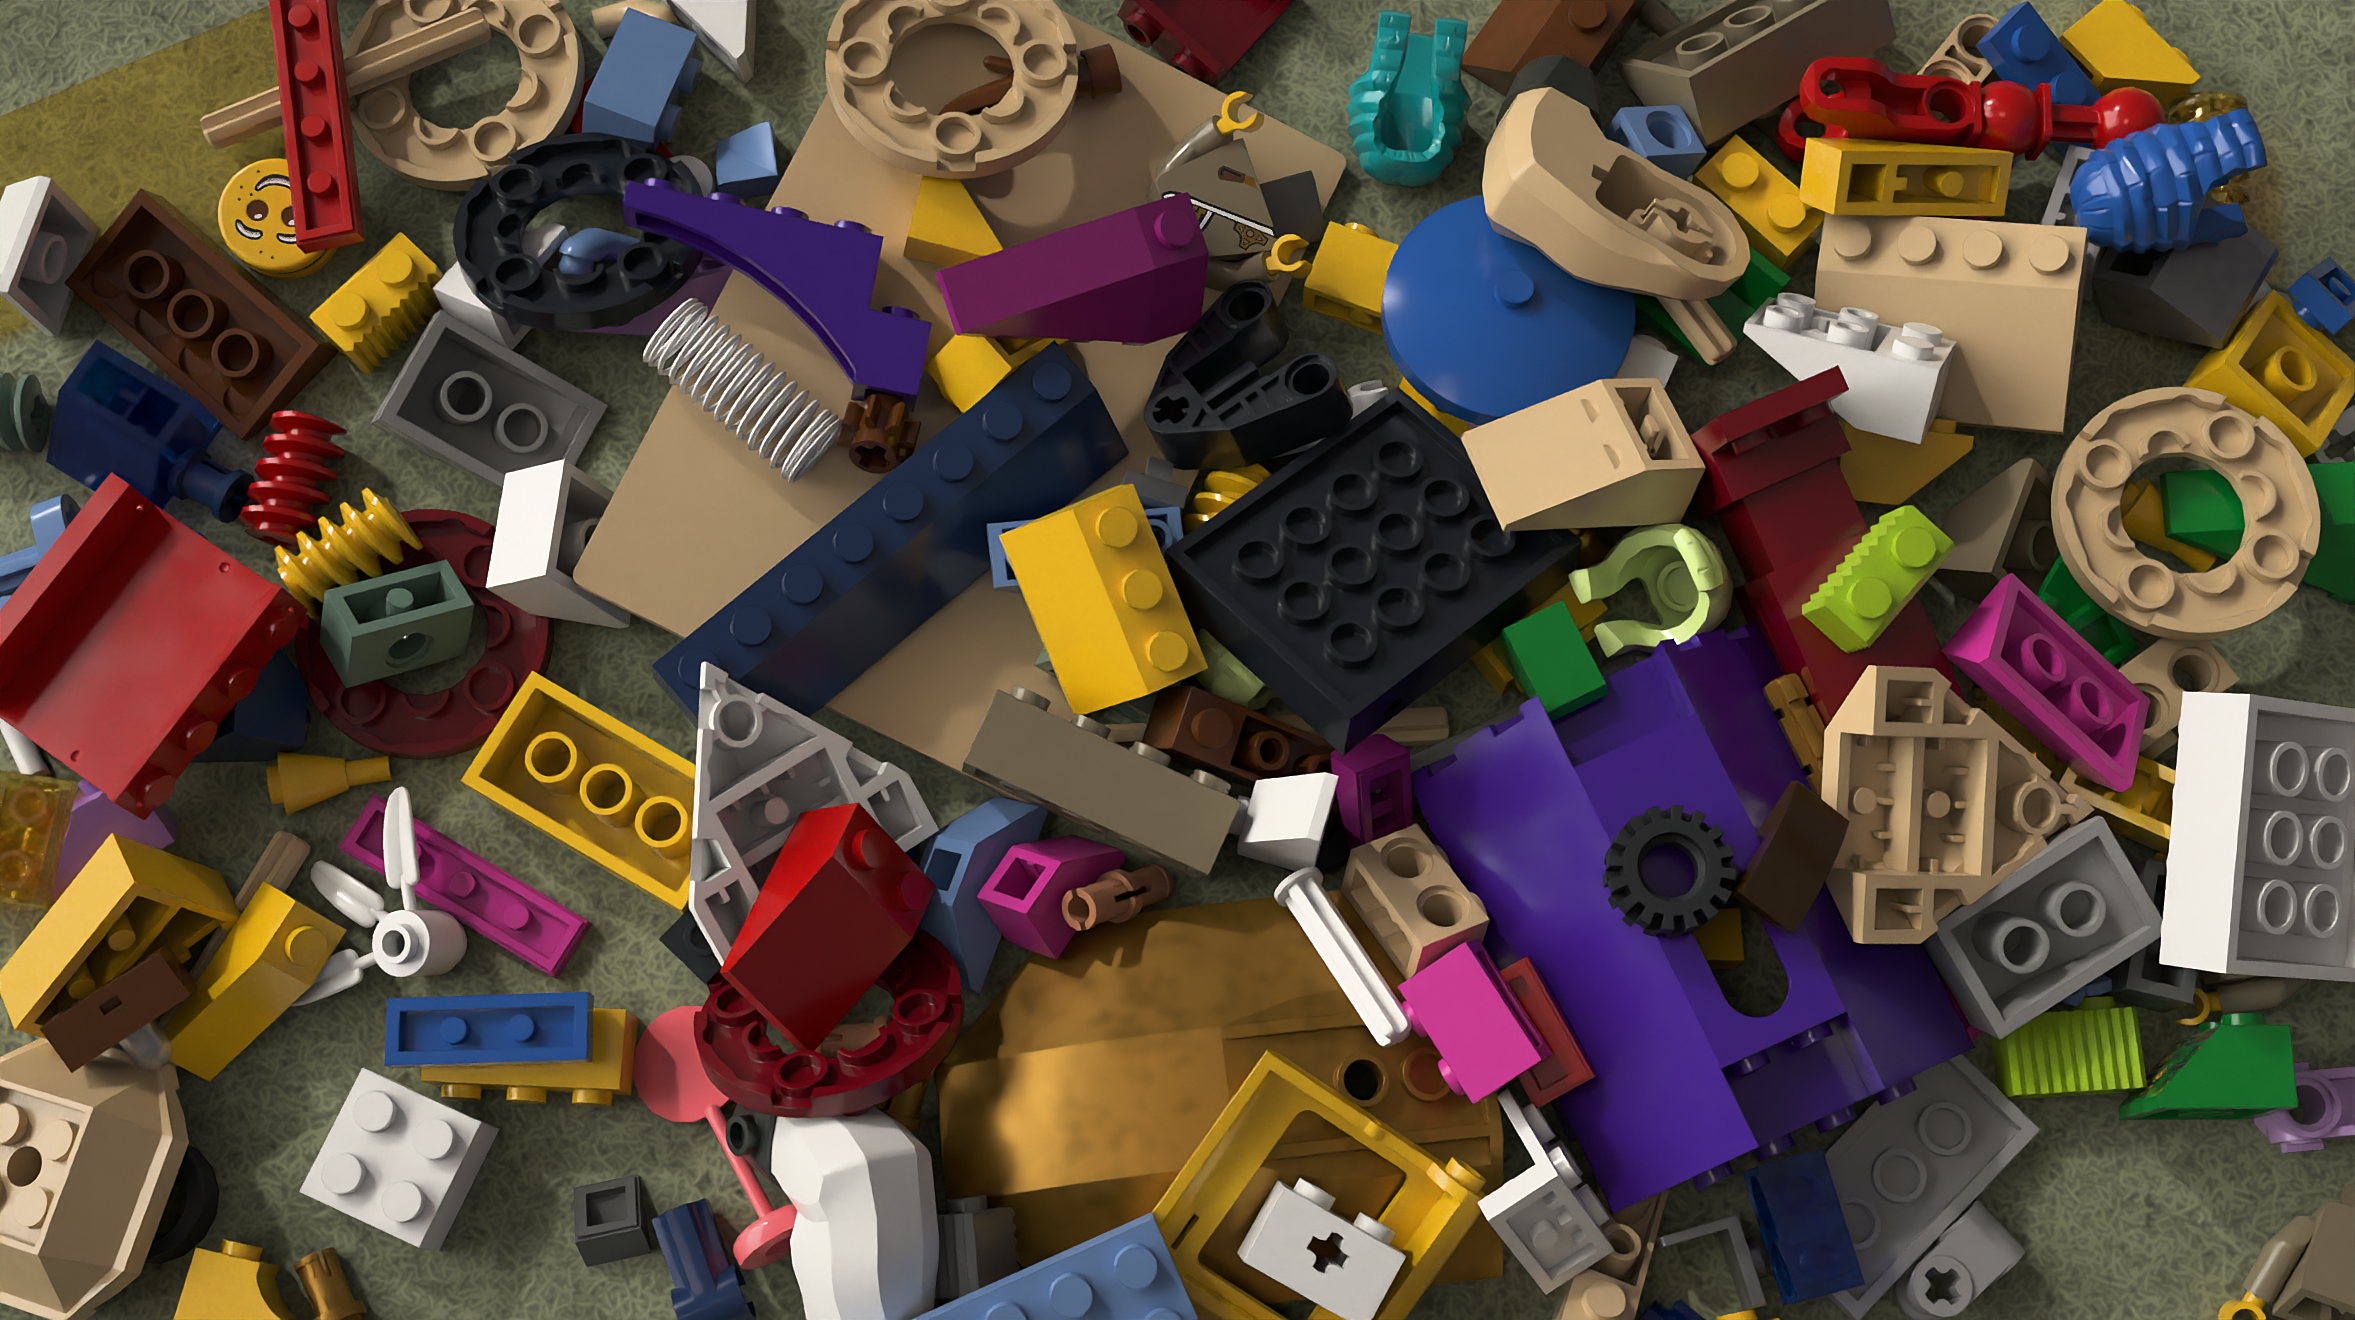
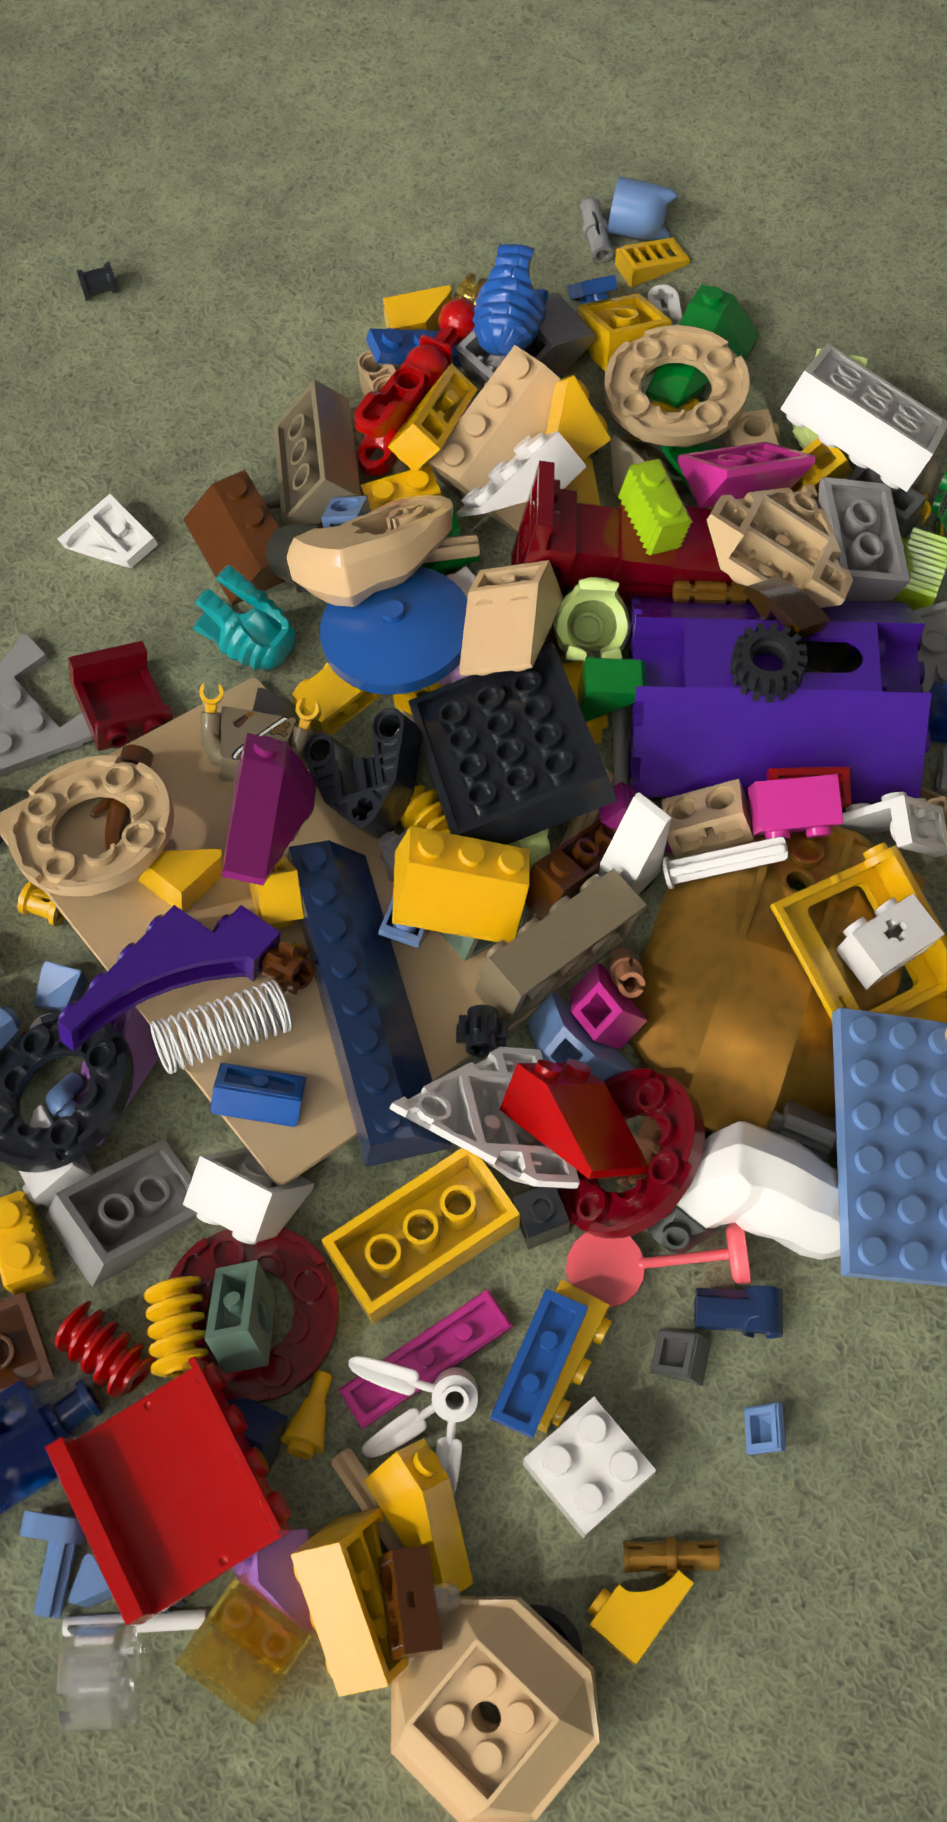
camera: 65 degrees left, 10 degrees down
(681, 487) = (258, 1094): none -> blue slope
(923, 737) = (482, 1030): none -> black gear
(2002, 389) = (575, 417): none -> yellow slope

